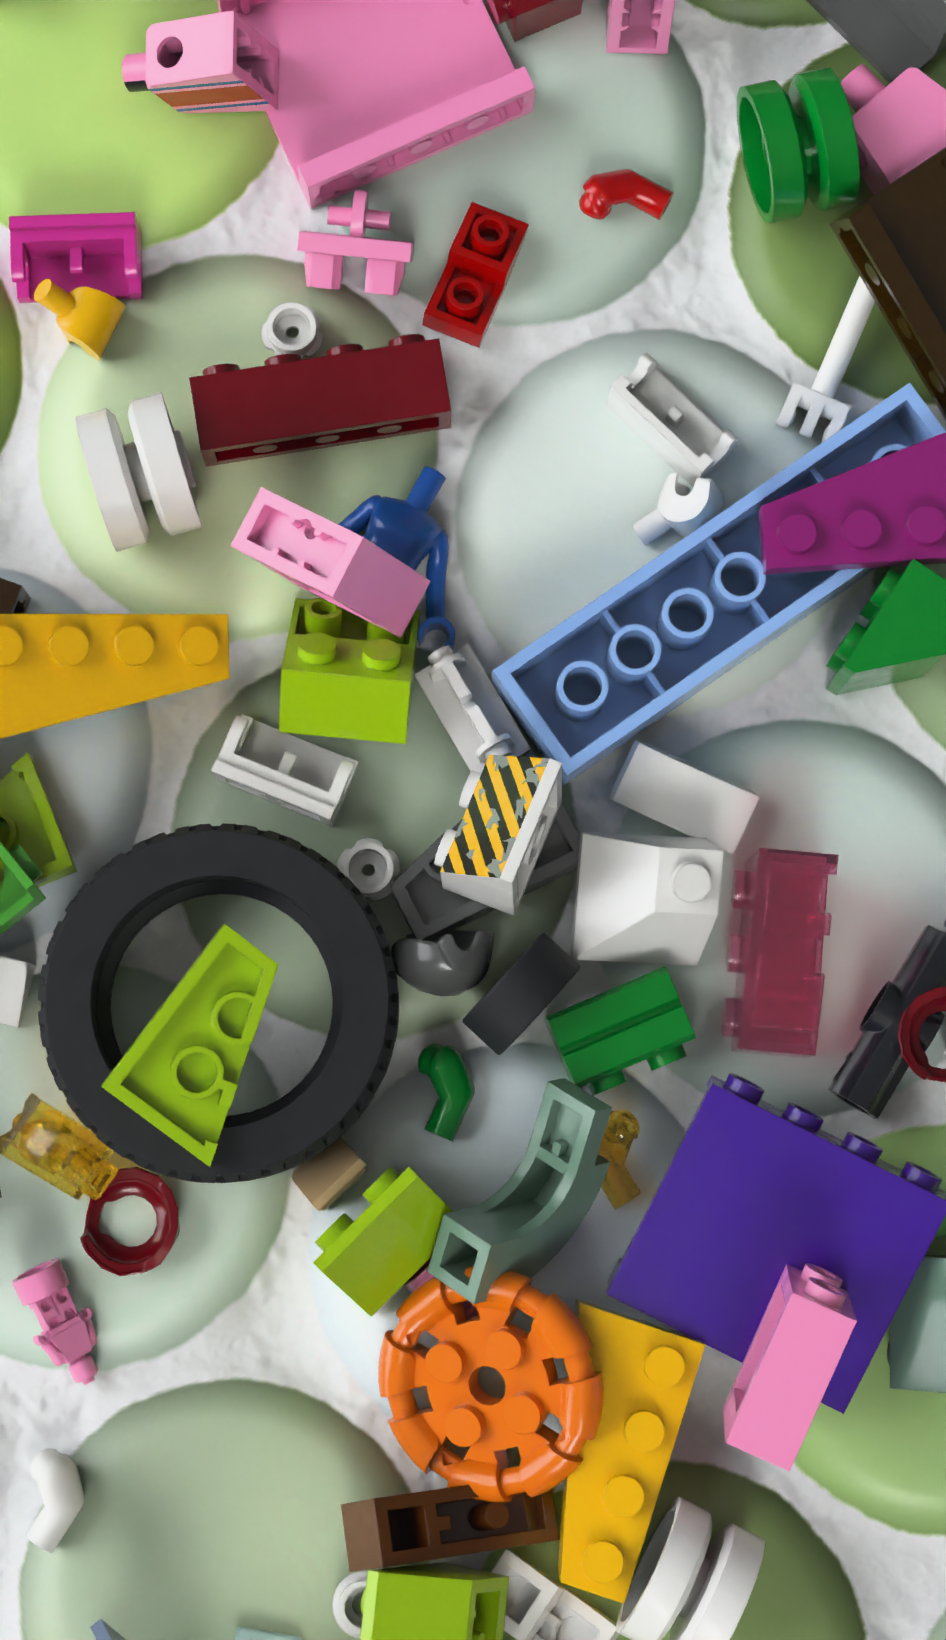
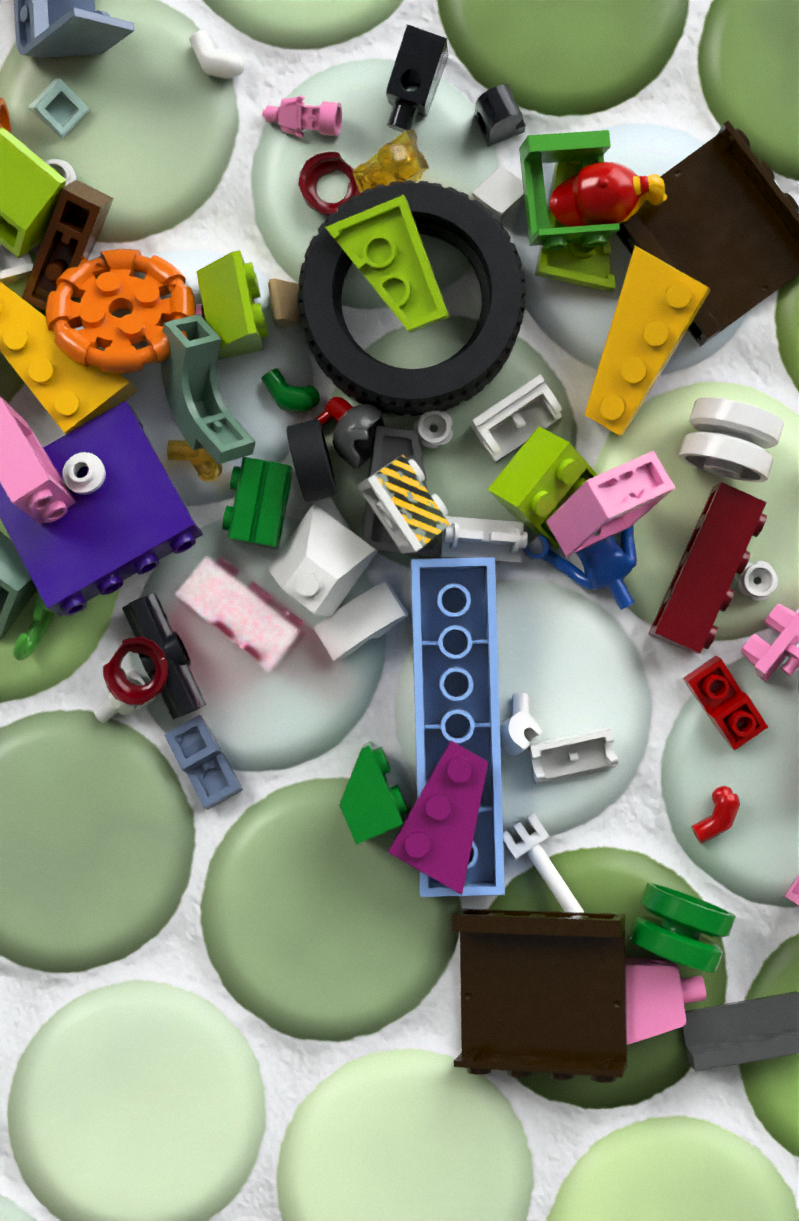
camera: 125 degrees right, 5 degrees up
(426, 1012) = (334, 410): none -> red hand
(736, 1257) = (91, 481): none -> white plate

